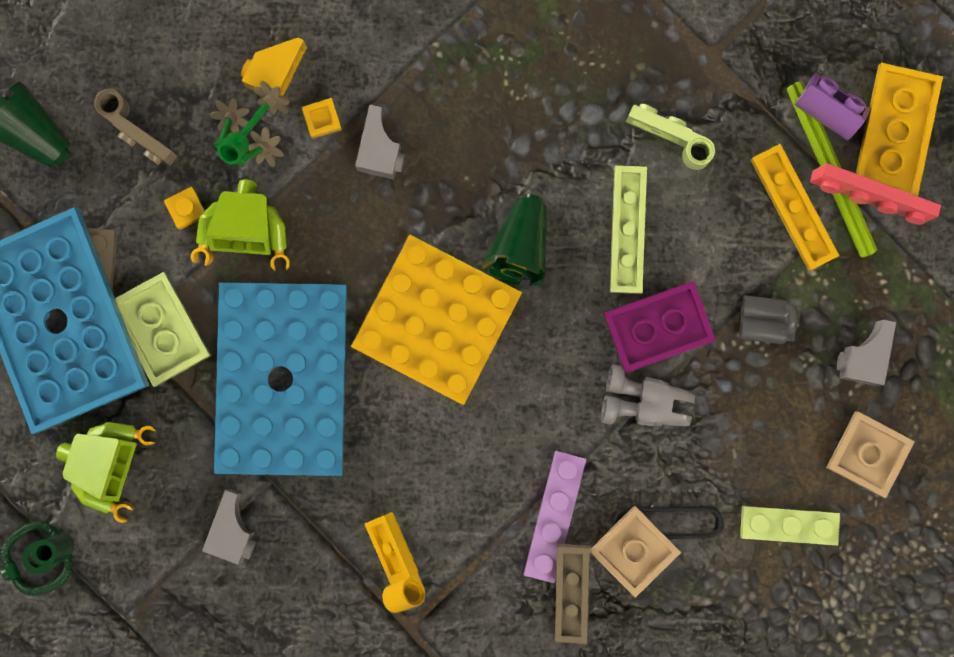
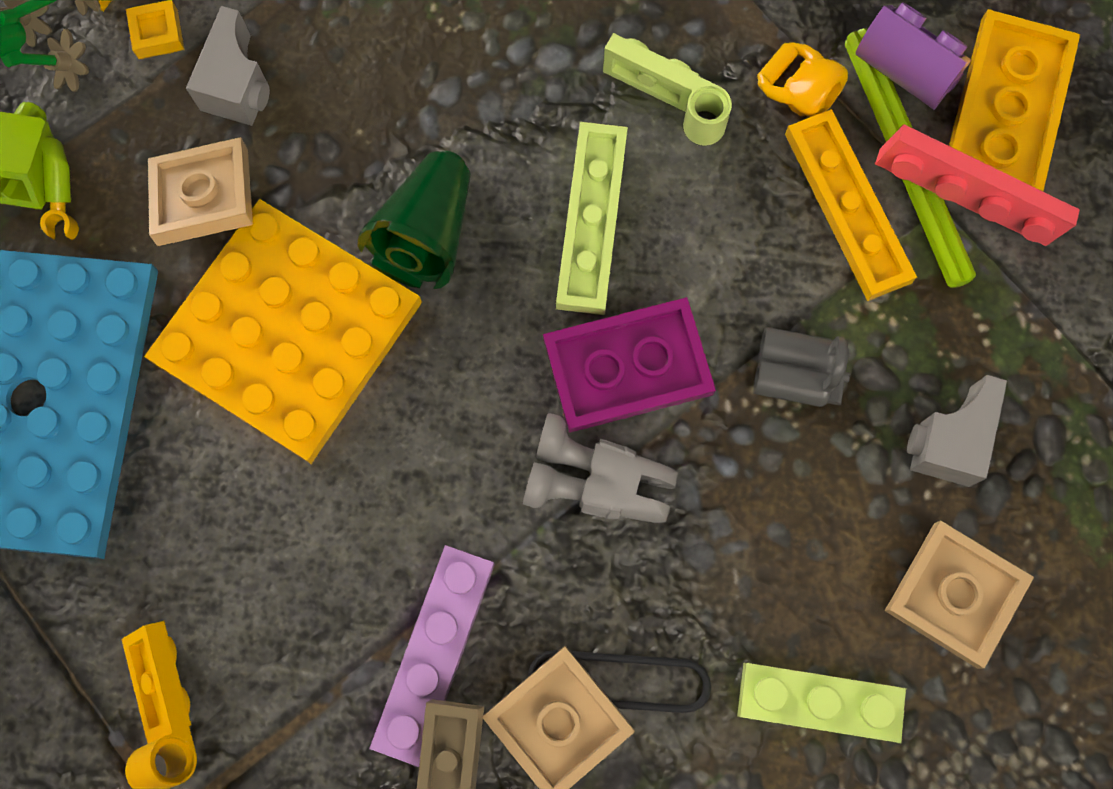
camera: 10 degrees right, 10 degrees down
(371, 234) = (199, 192): none -> tan plate
(767, 123) = (812, 86): none -> yellow piece

